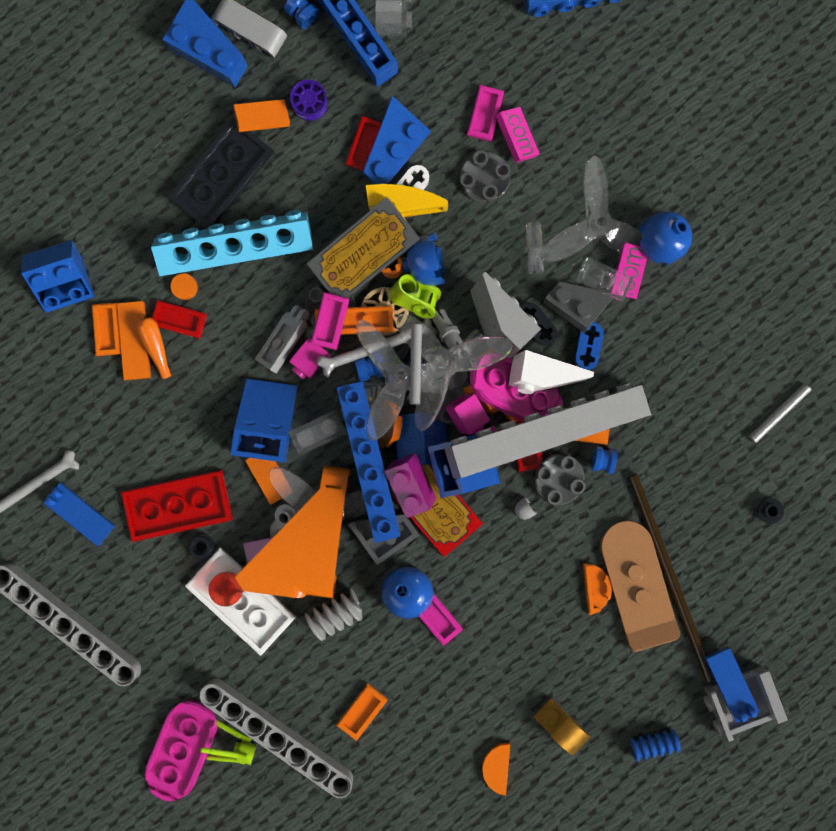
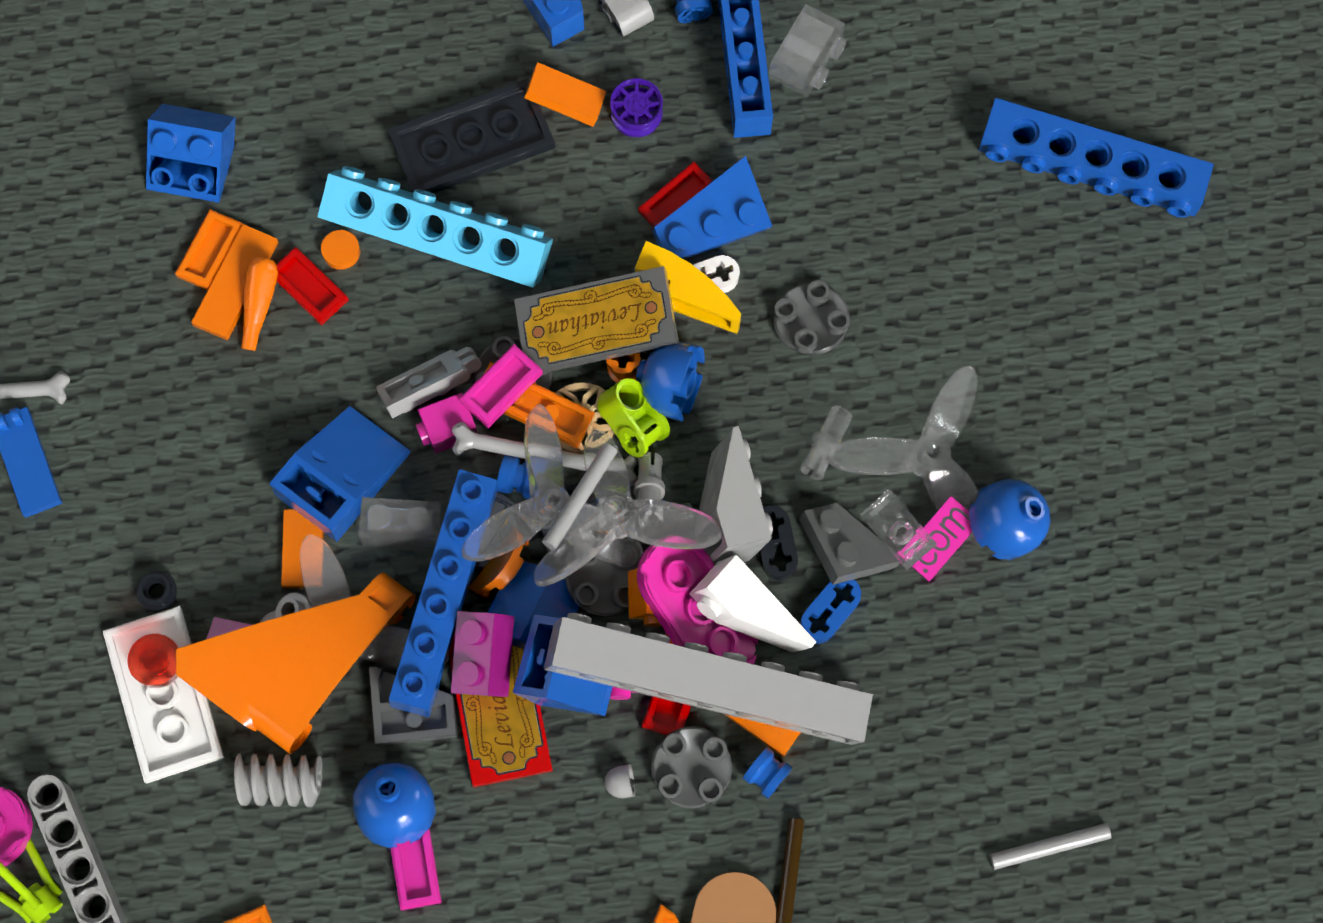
camera: 30 degrees right, 15 degrees down
(176, 506) = (158, 520): red tile -> none
(467, 414) = (614, 601): dark pink brick -> none
(484, 113) = (856, 241): dark pink tile -> none
(517, 134) = (883, 288): dark pink tile -> none

